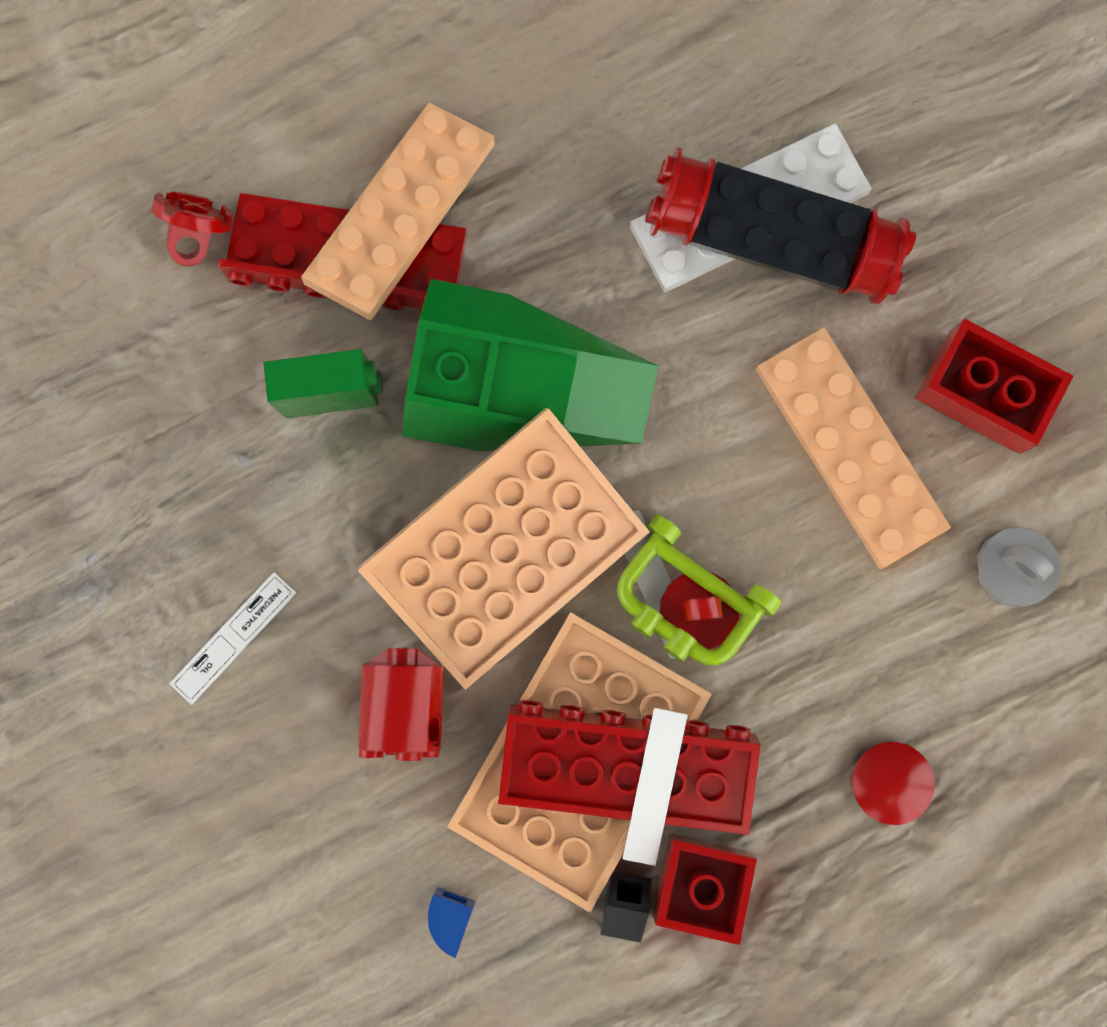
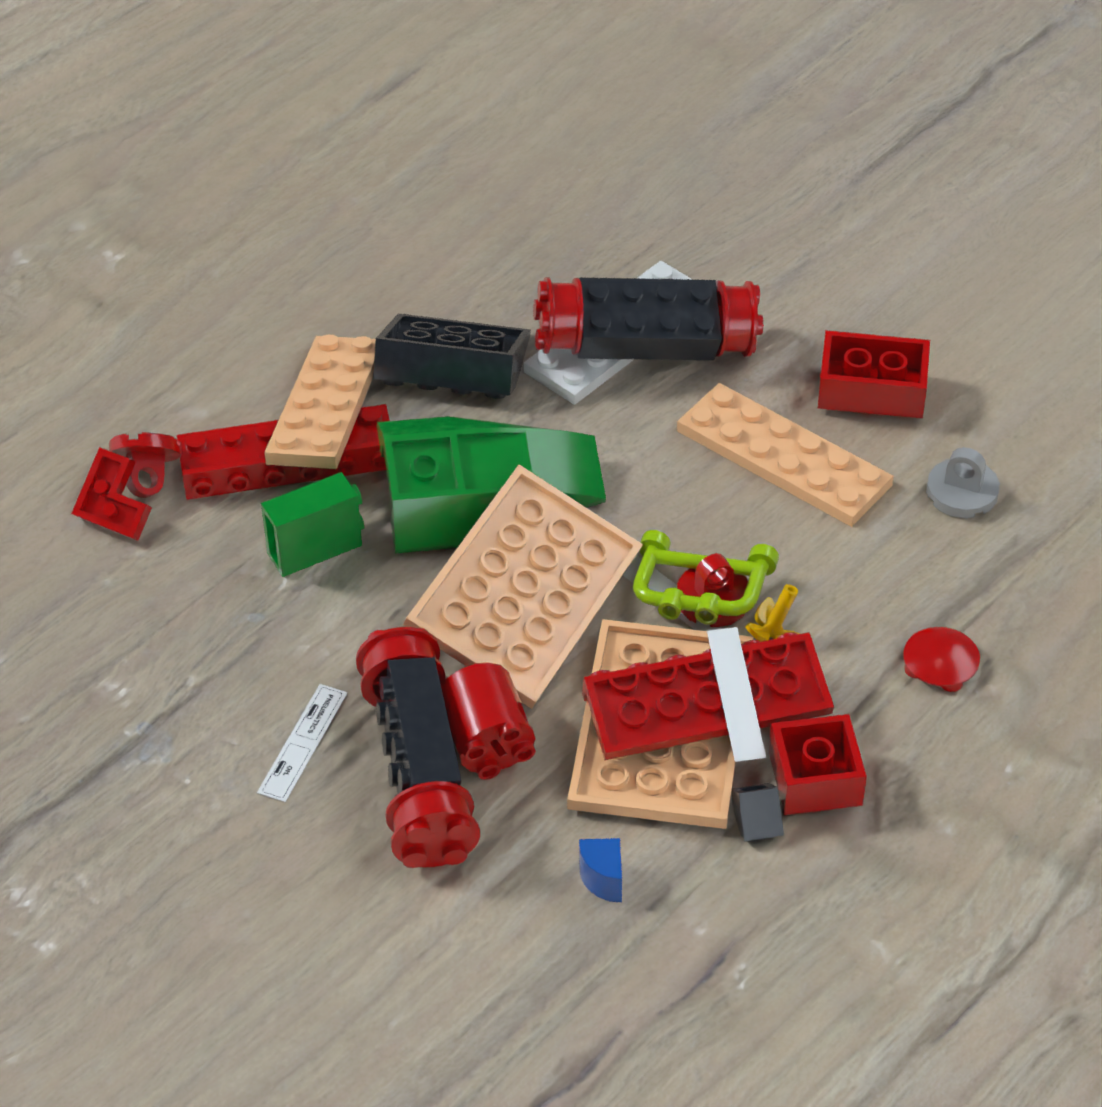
camera: 25 degrees left, 35 degrees down
(134, 265) = (102, 496): none -> red plate
(305, 812) = (431, 807): none -> brick
(559, 180) = (450, 355): none -> black slope
(745, 683) = (772, 615): none -> yellow plant

